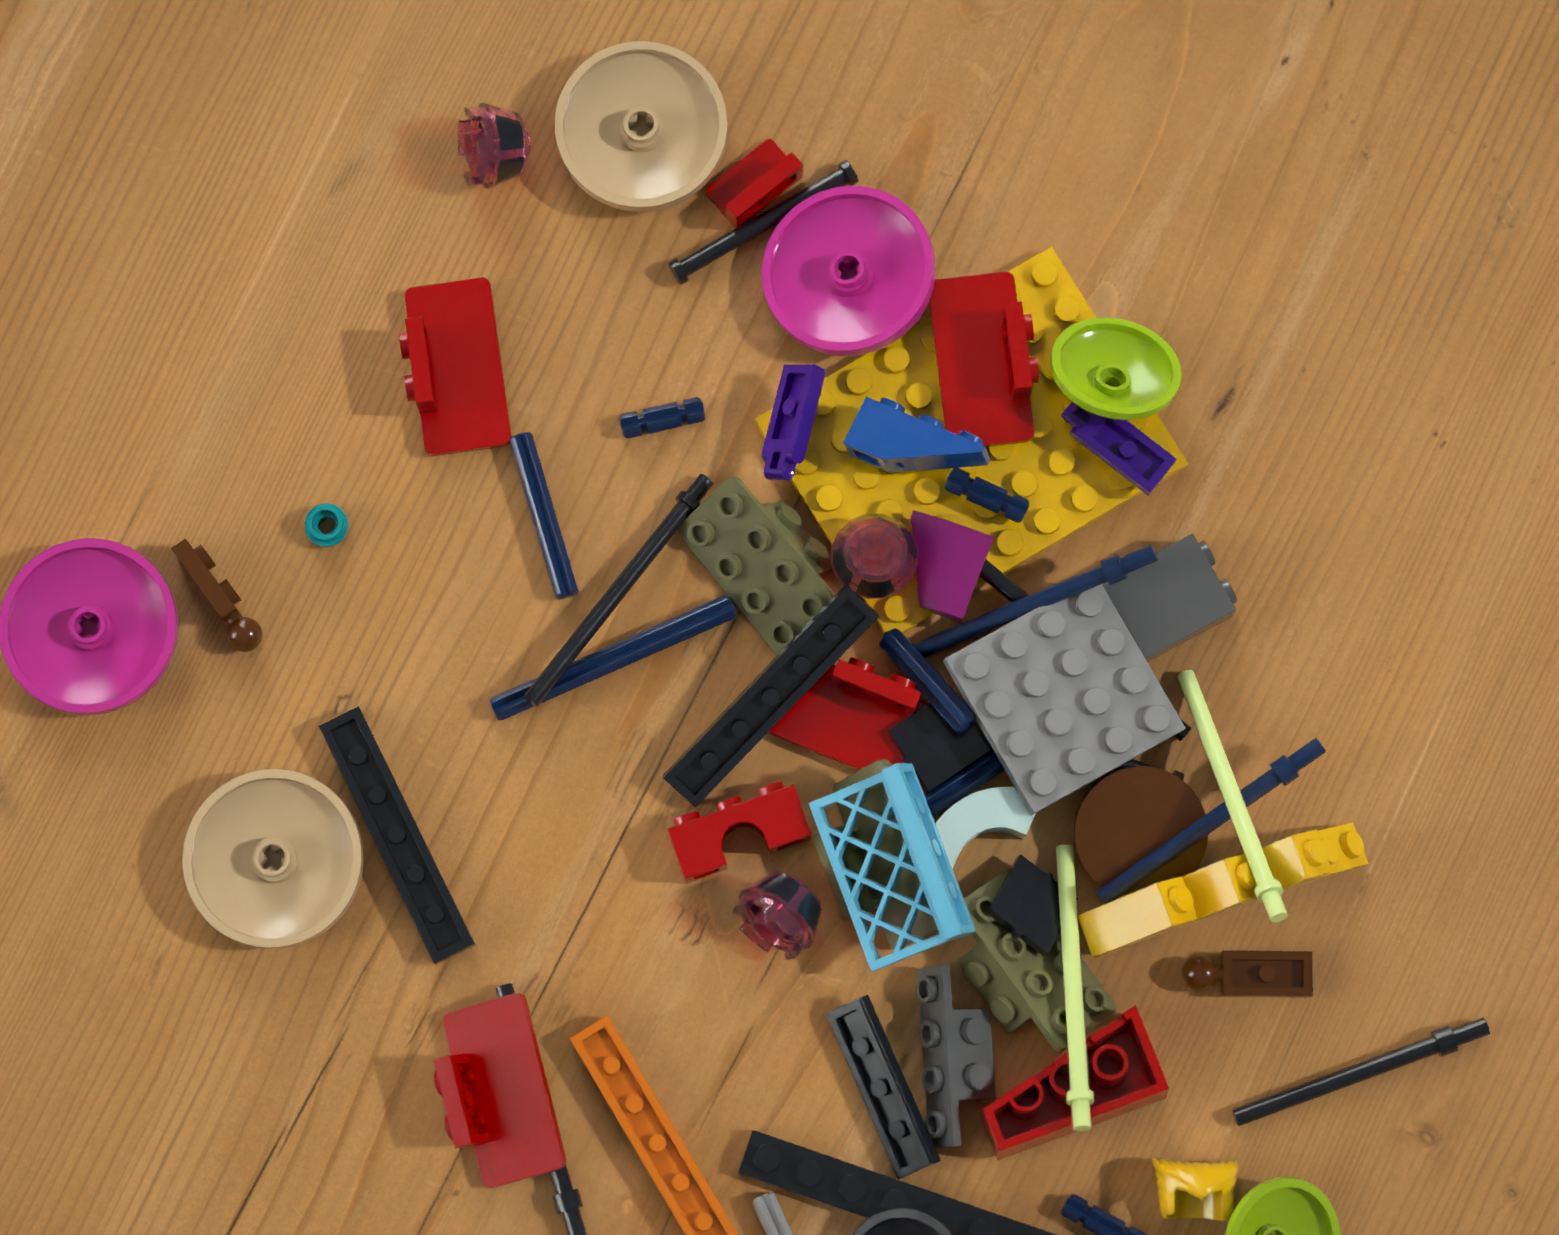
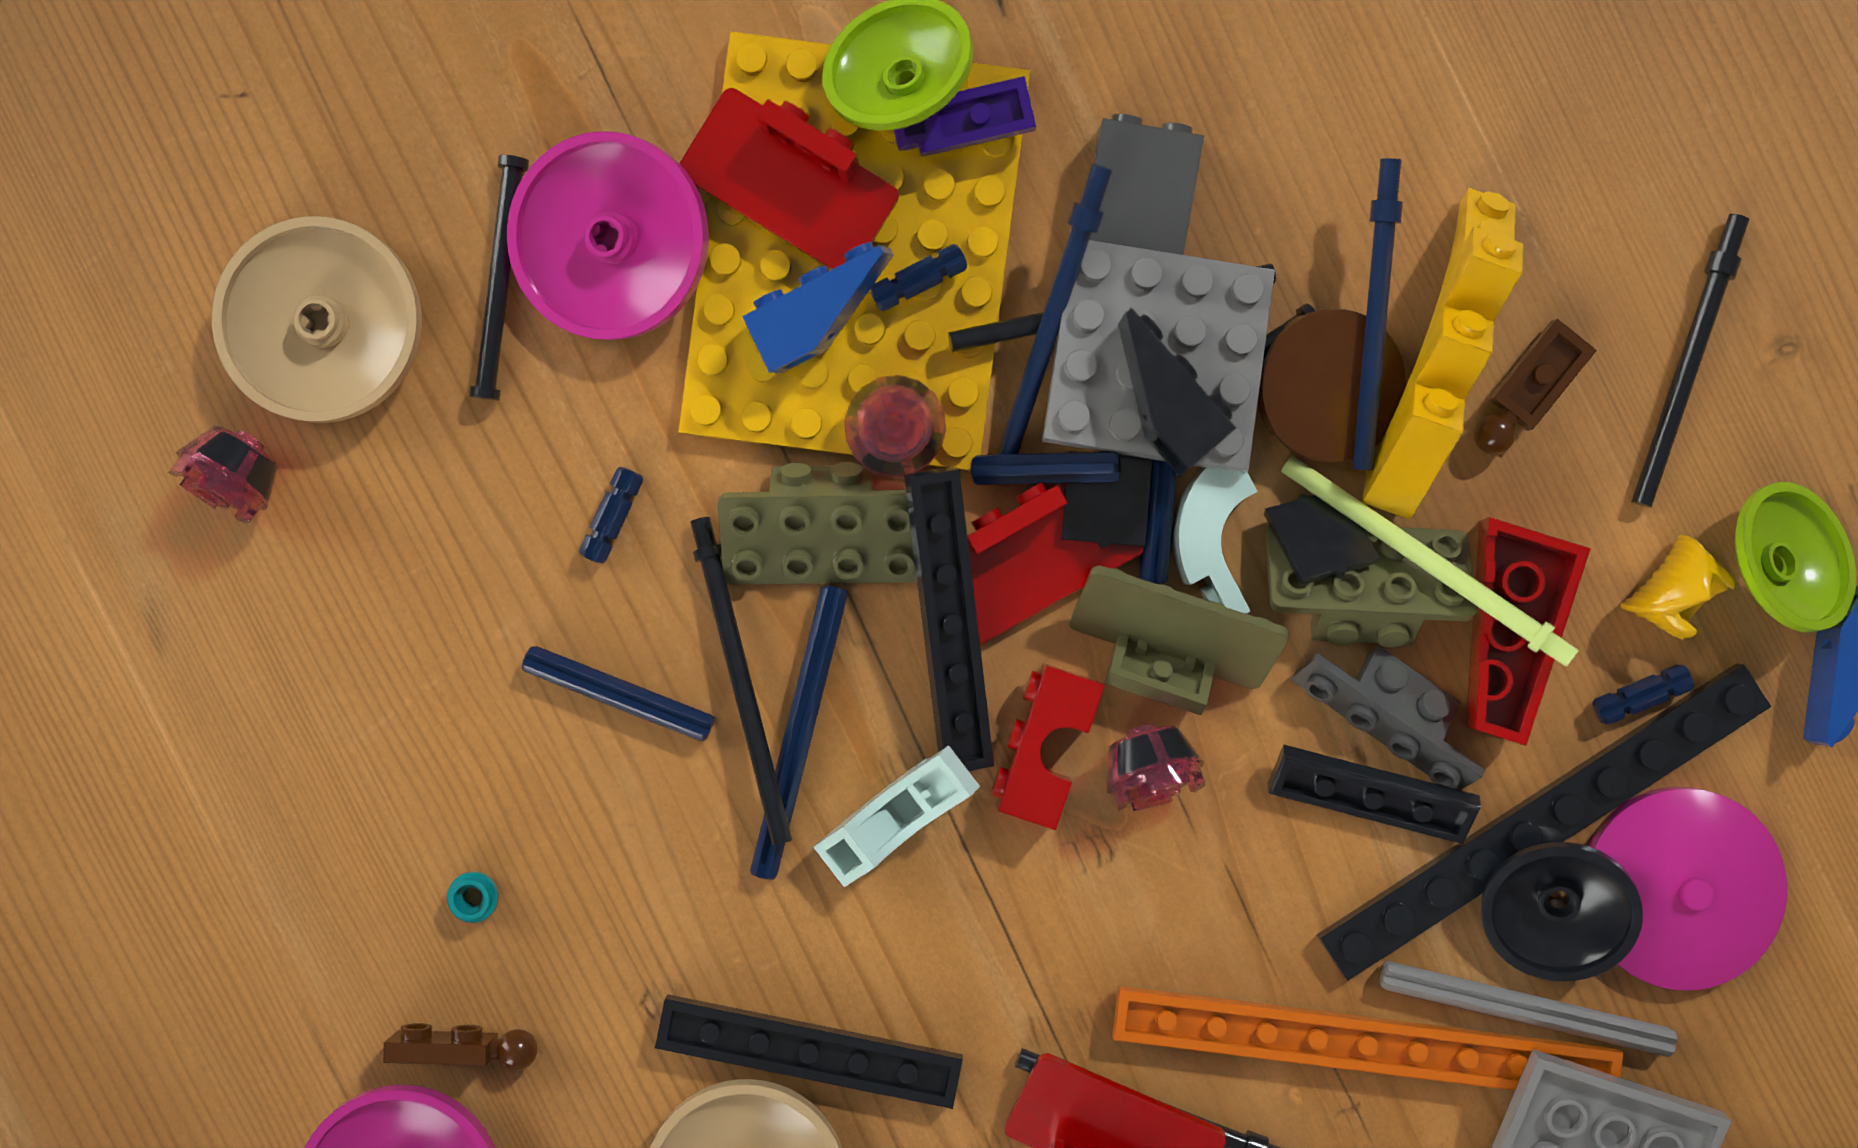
camera: 50 degrees left, 10 degrees up
(455, 366) = (413, 667): red bracket -> none
(609, 764) = (895, 815): none -> light aqua arch
(754, 182) = (454, 256): red panel -> none
(791, 420) = (708, 401): dark purple hinge -> none
(926, 853) = (1221, 604): medium azure fence -> none
(947, 564) = (955, 364): magenta slope -> none
(1031, 730) = (1172, 406): none -> black slope
(1267, 889) = (1502, 317): yellowish green bar -> none

